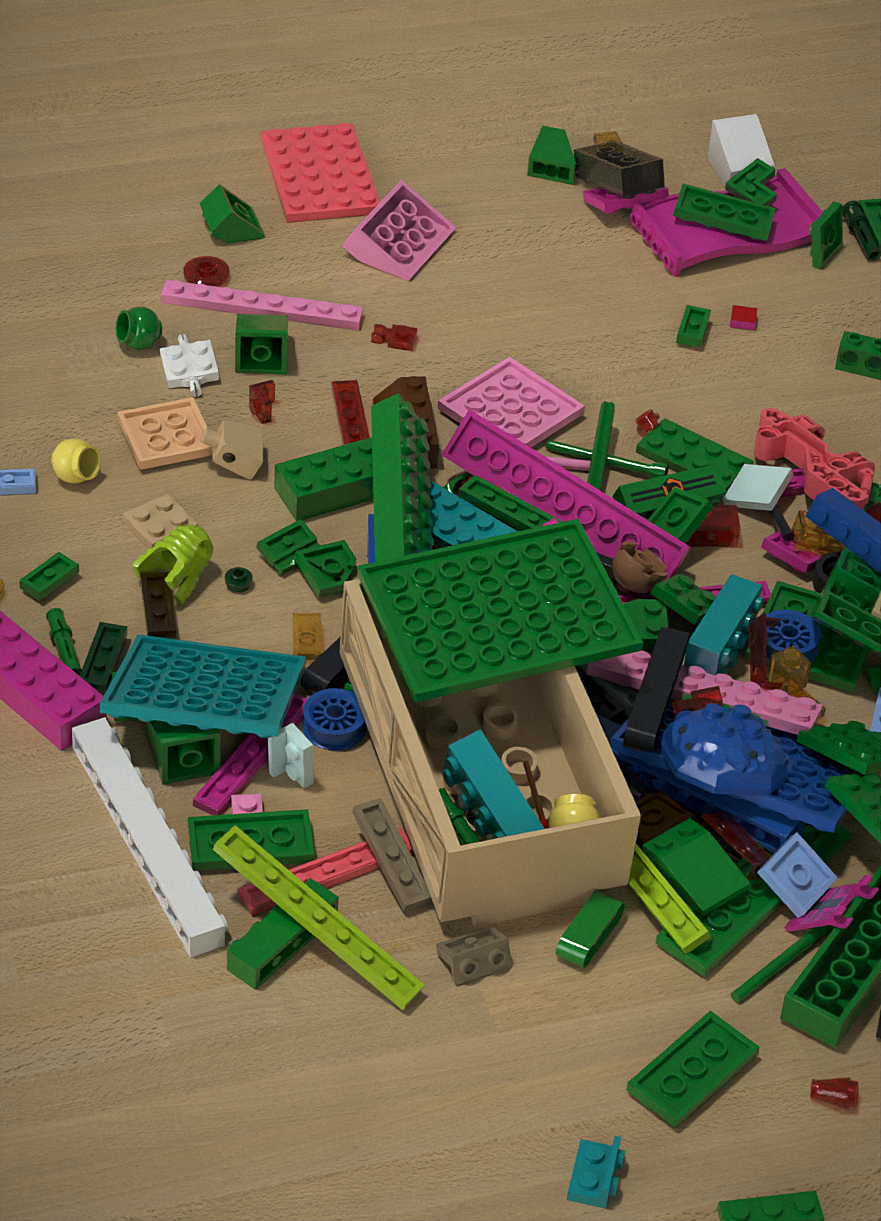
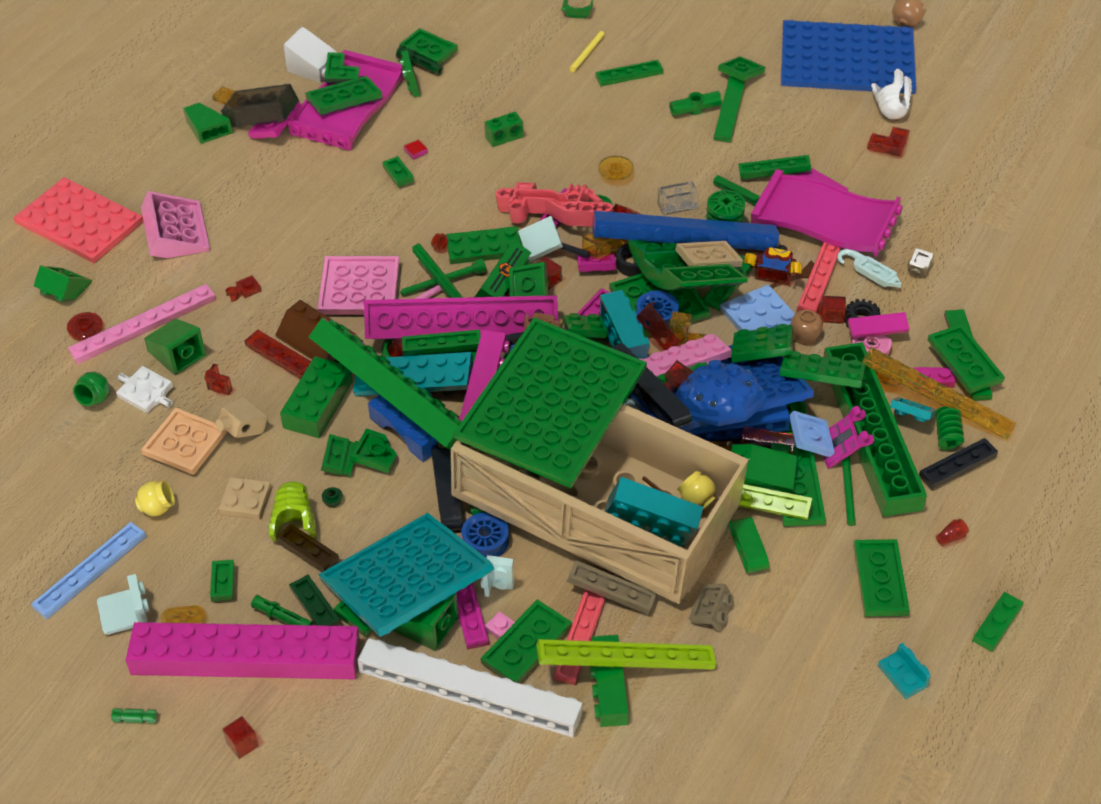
camera: 40 degrees left, 5 degrees up
(307, 635) = (411, 500): clear yellow plate -> none

